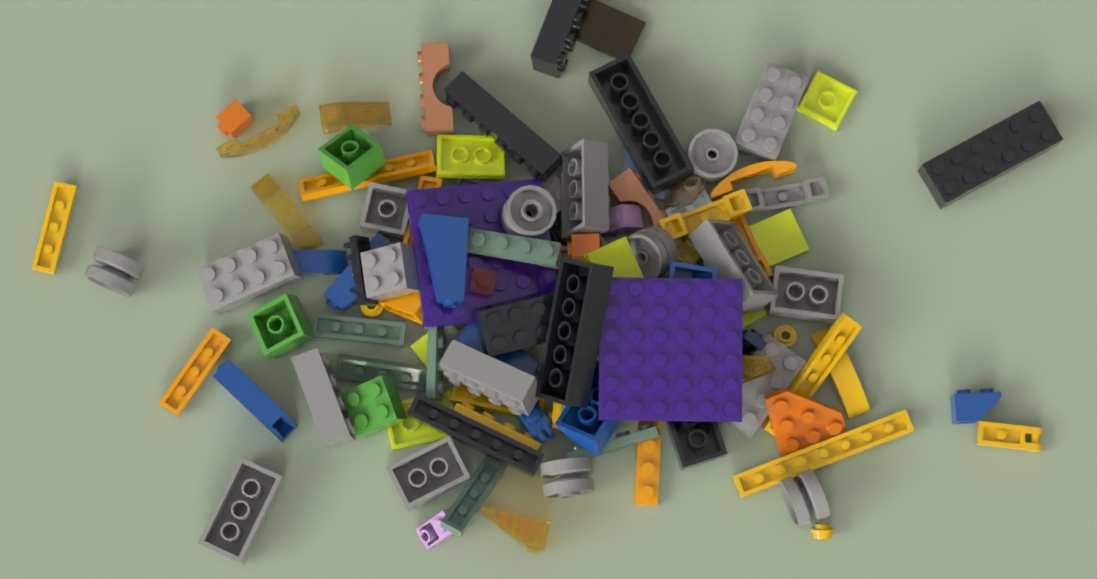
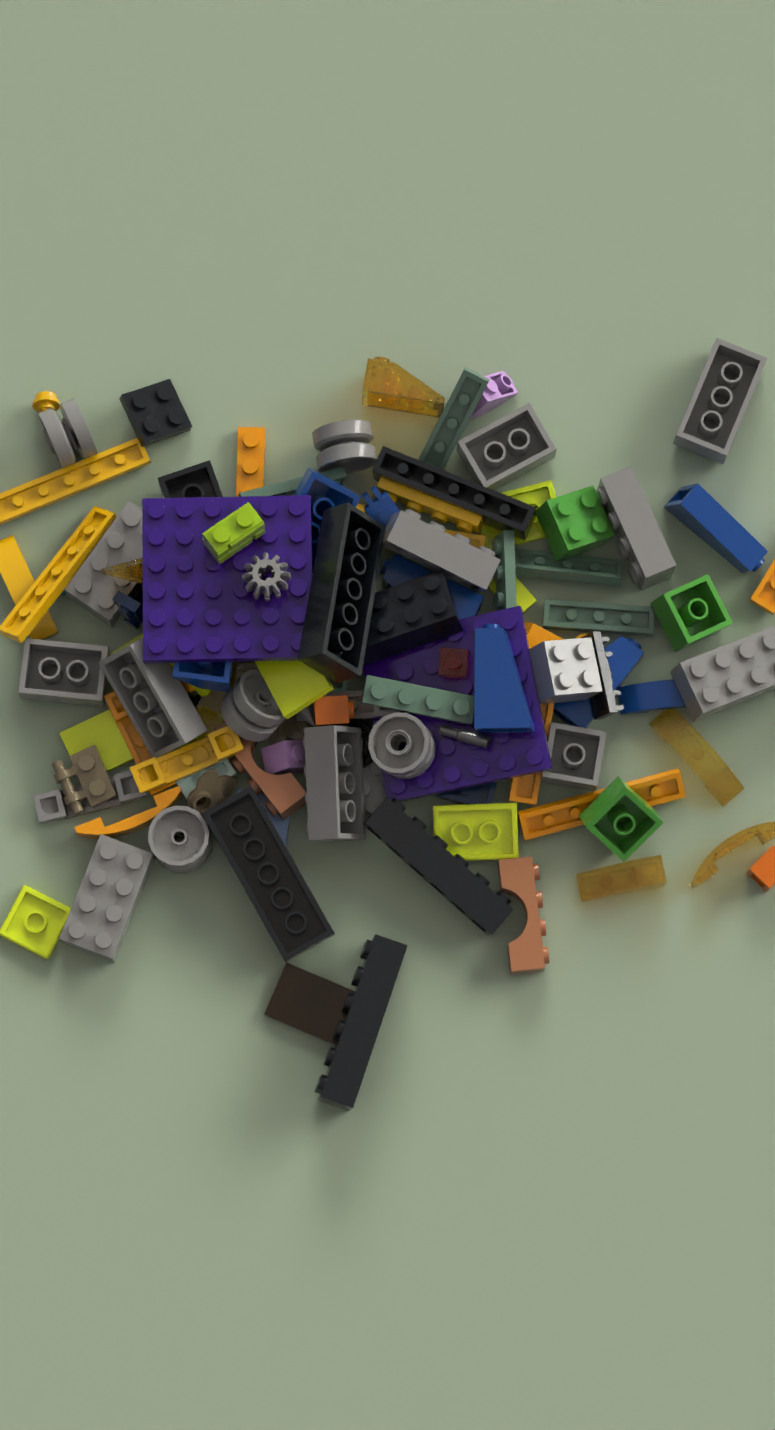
camera: 175 degrees right, 0 degrees up
(476, 220) = (466, 736): none -> flat silver pin
(640, 349) = (262, 568): none -> light grey gear
(665, 379) = (233, 533): none -> lime brick
(728, 519) = (155, 412): none -> black plate
(782, 211) = (92, 776): none -> dark tan plate
(792, 335) = (92, 635): yellow plate -> none
(801, 420) = (68, 522): orange plate -> none

